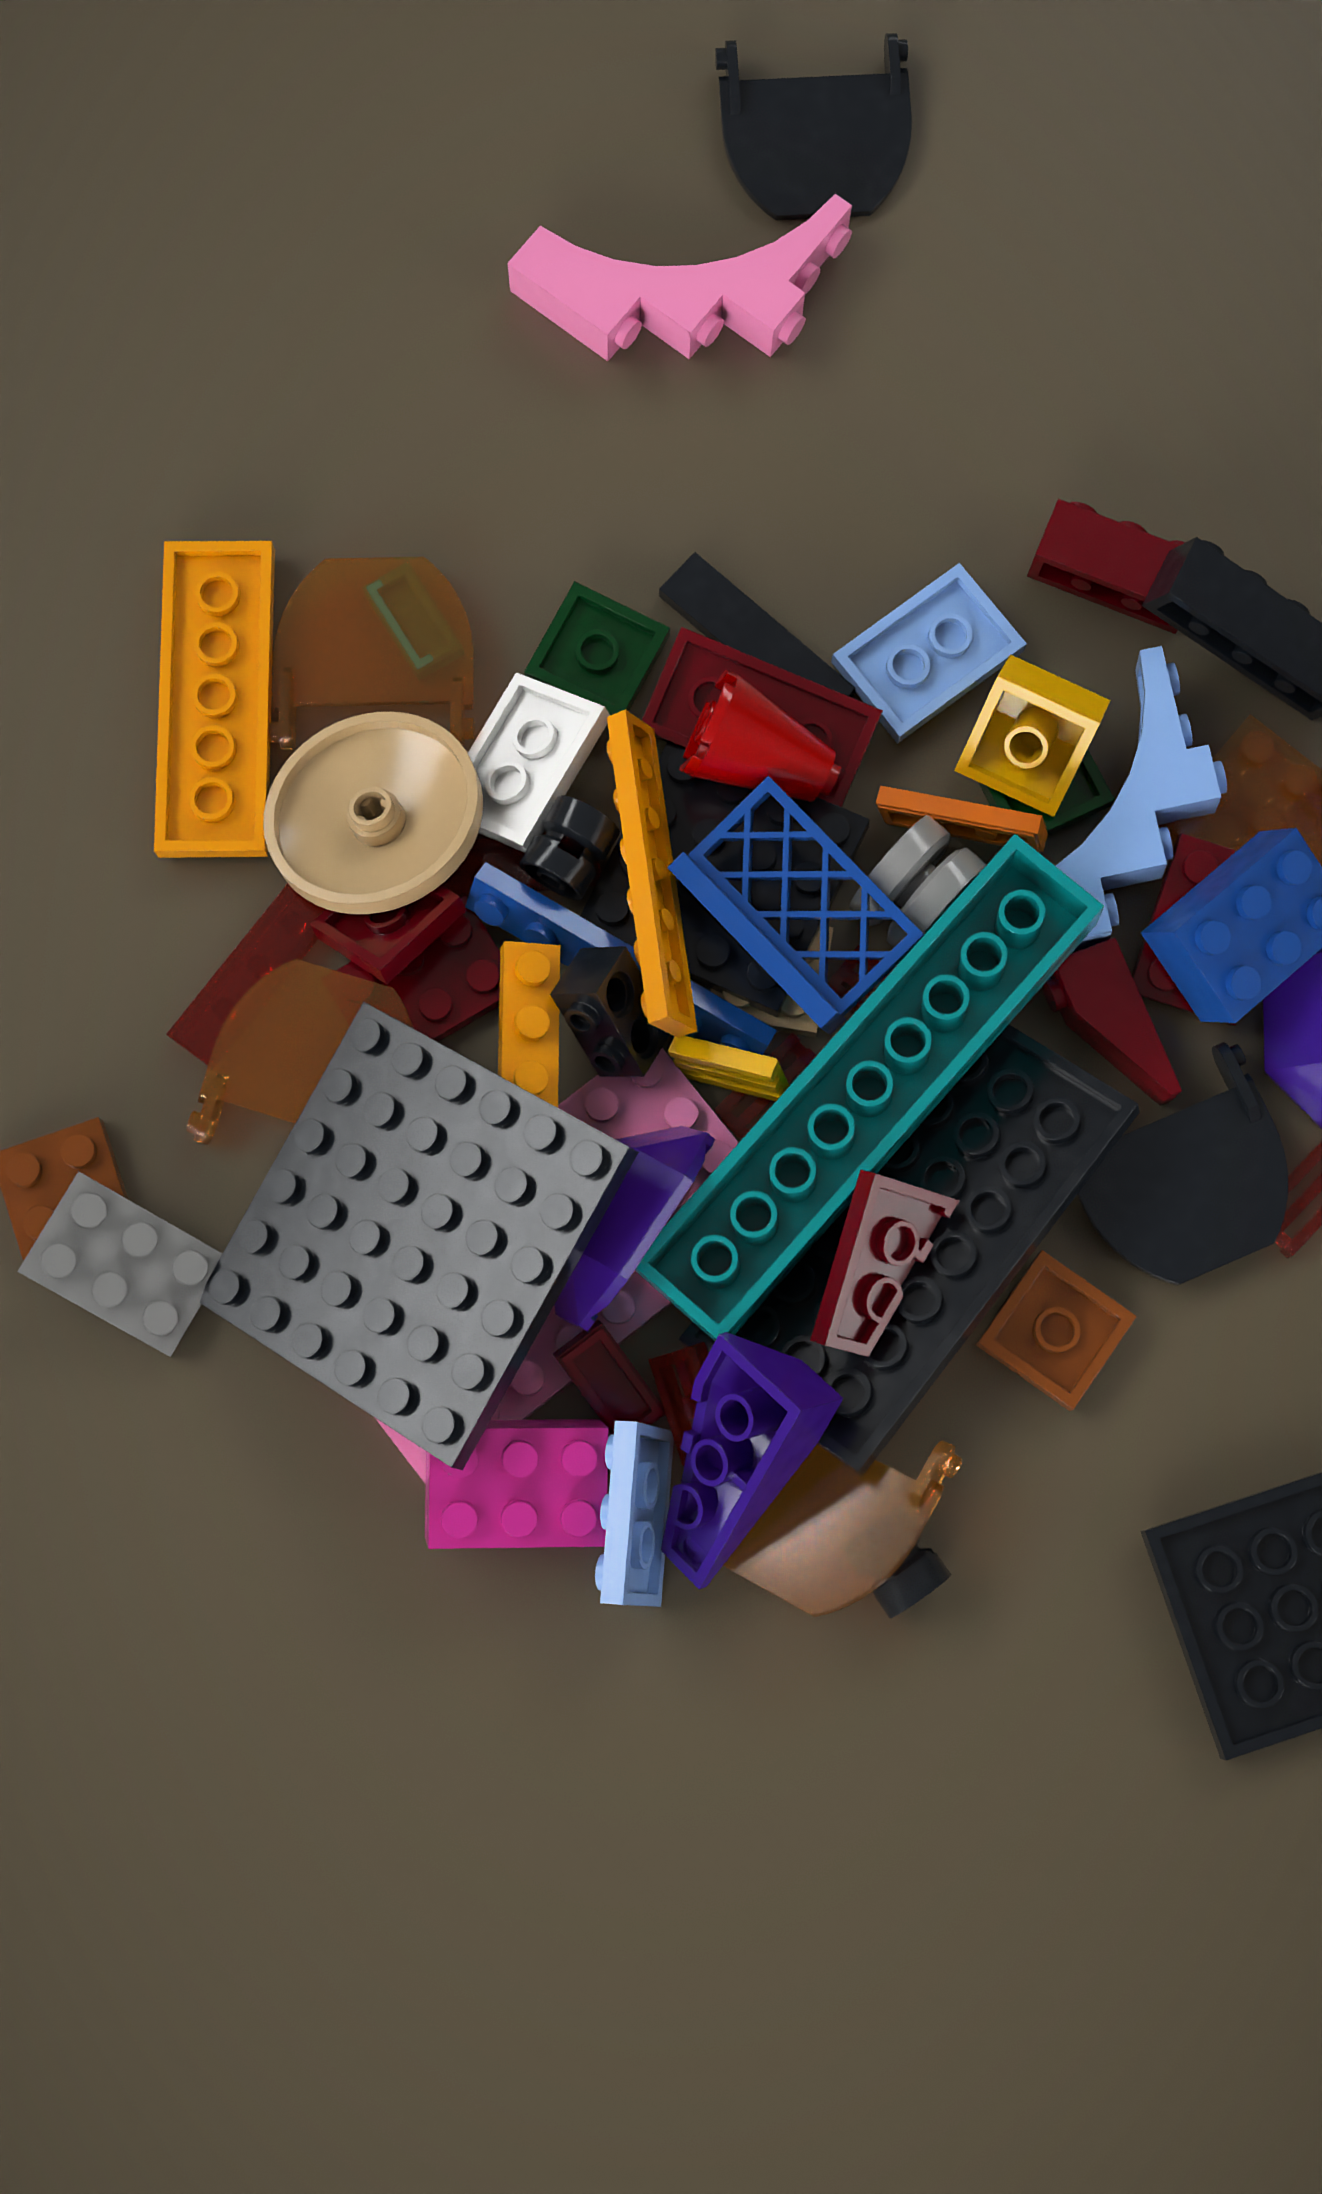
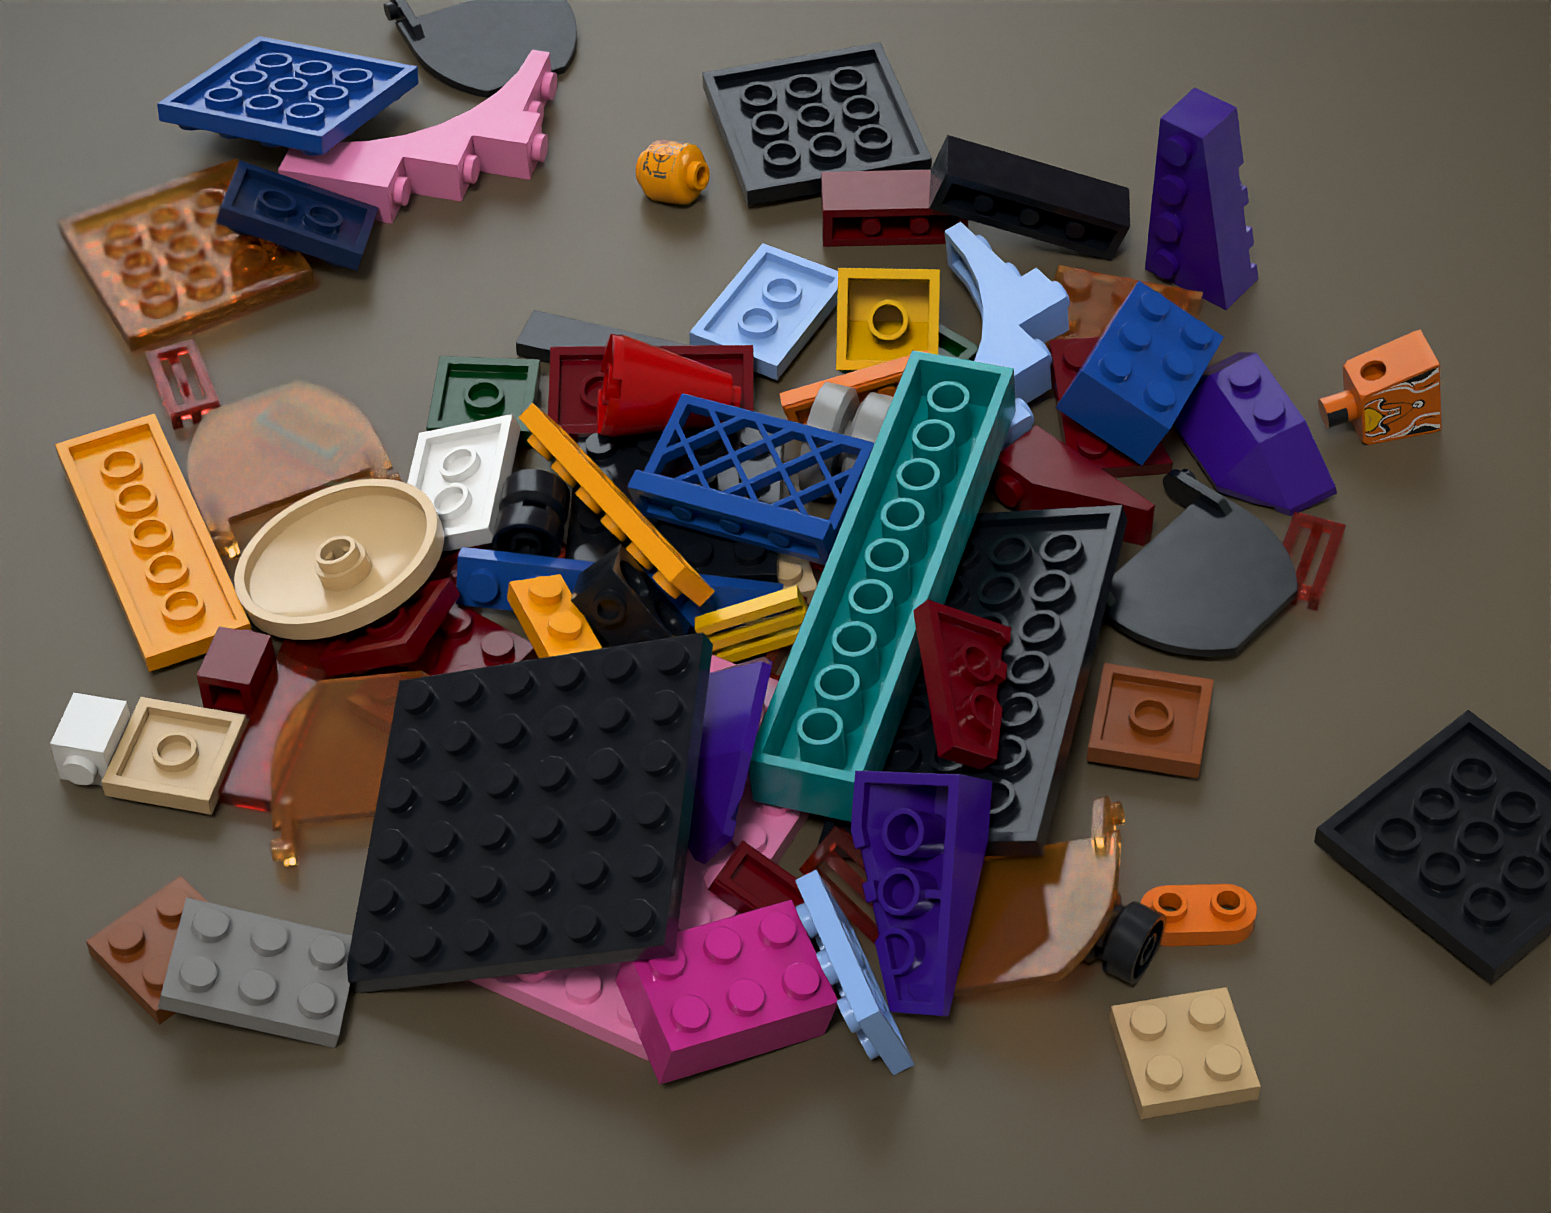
camera: 20 degrees left, 30 degrees down
(72, 928) = (88, 737): none -> white brick
(142, 974) = (174, 755): none -> tan plate
(232, 899) = (235, 670): none -> brick
(319, 541) = (192, 408): none -> clear red tile
(382, 327) = (170, 266): none -> clear orange plate
(503, 335) = (297, 216): none -> dark blue plate
(559, 156) = (288, 95): none -> blue plate
(904, 1705) = (1184, 1053): none -> tan plate
(911, 421) = (672, 172): none -> light orange head
(992, 1563) = (1200, 914): none -> orange plate
(1093, 407) = (812, 117): none -> black plate

